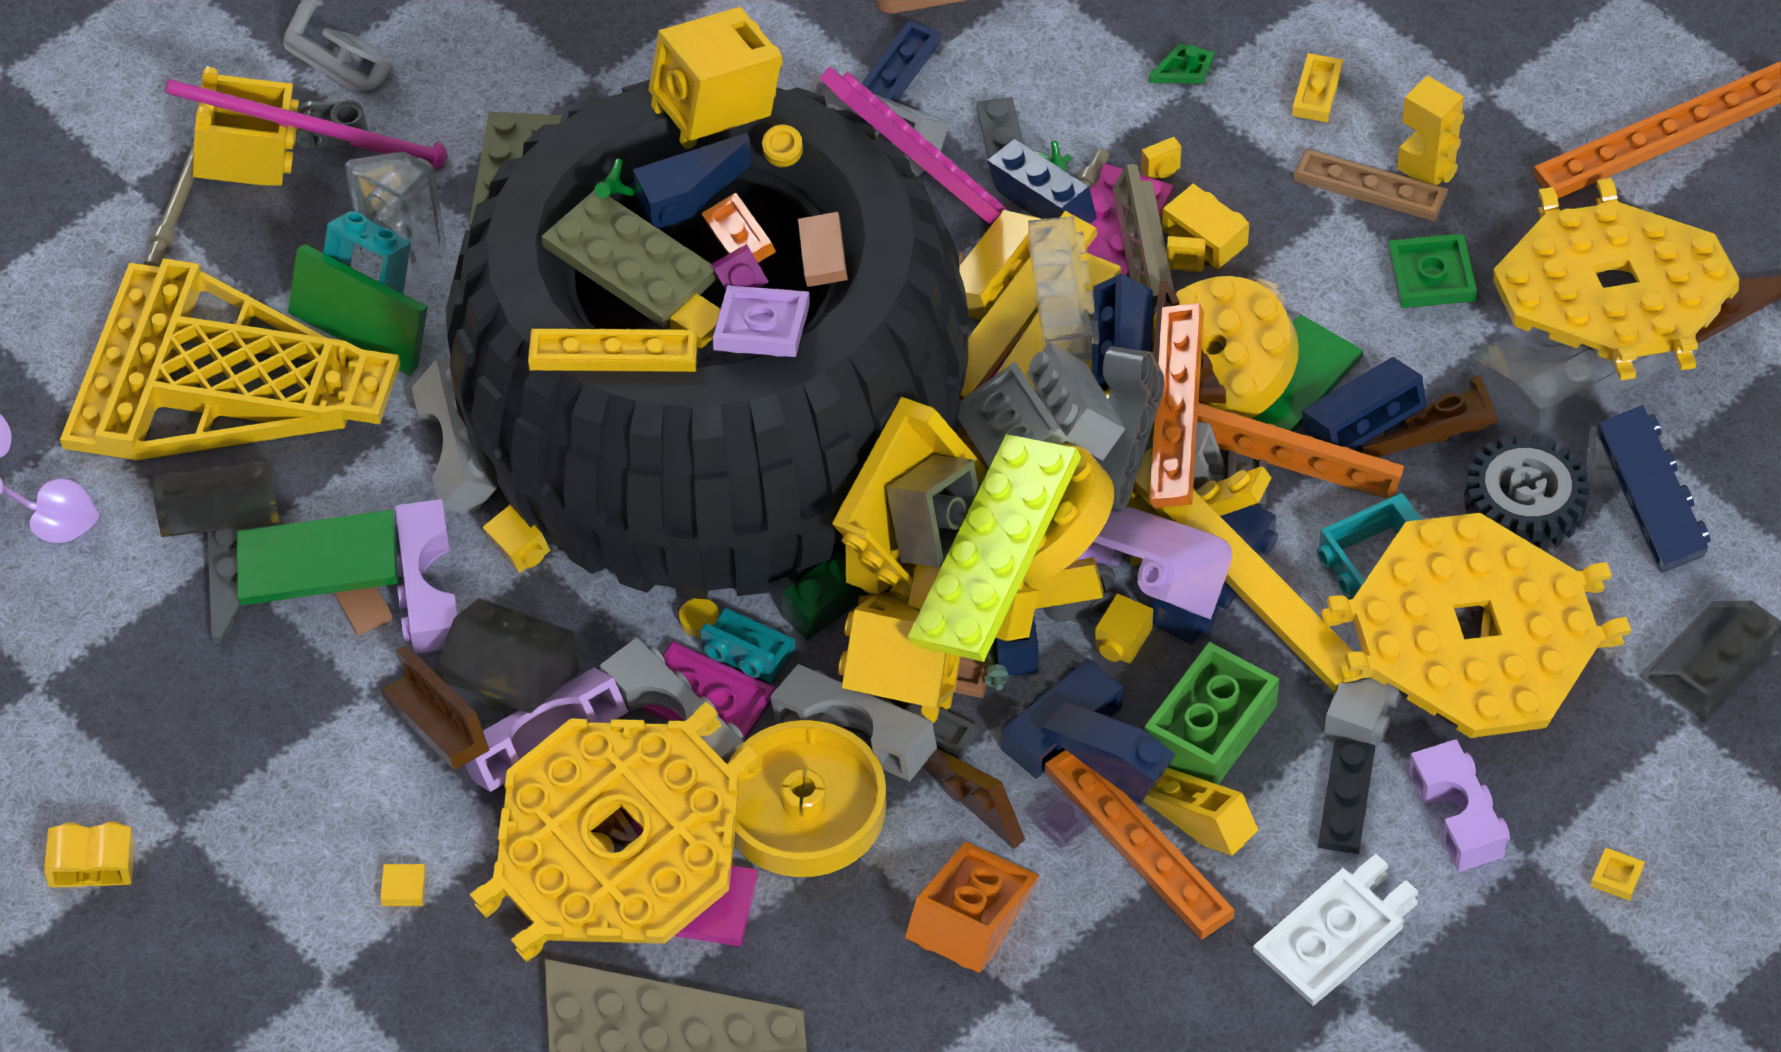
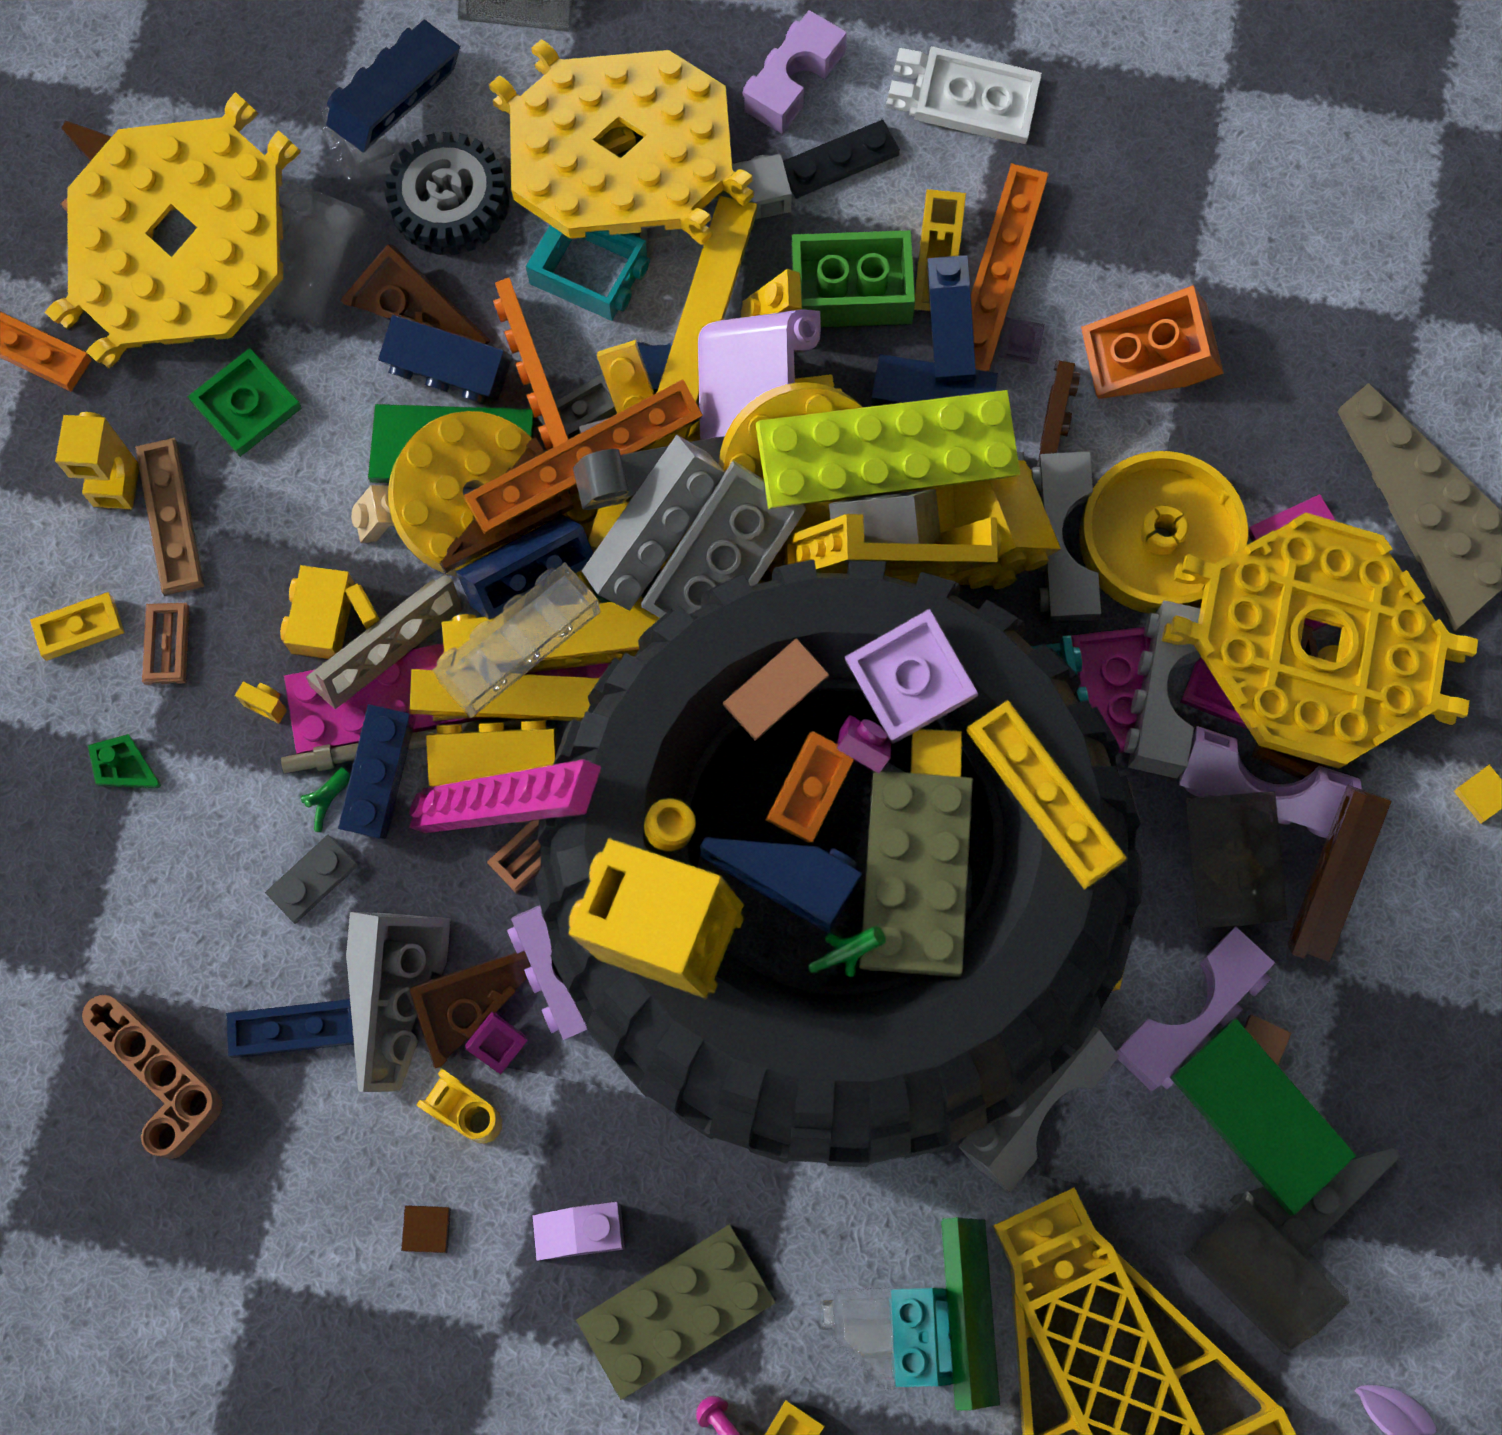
camera: 125 degrees left, 20 degrees up
(1231, 639) = (776, 296): none -> yellow plate
(1258, 138) = (166, 676): none -> nougat tile

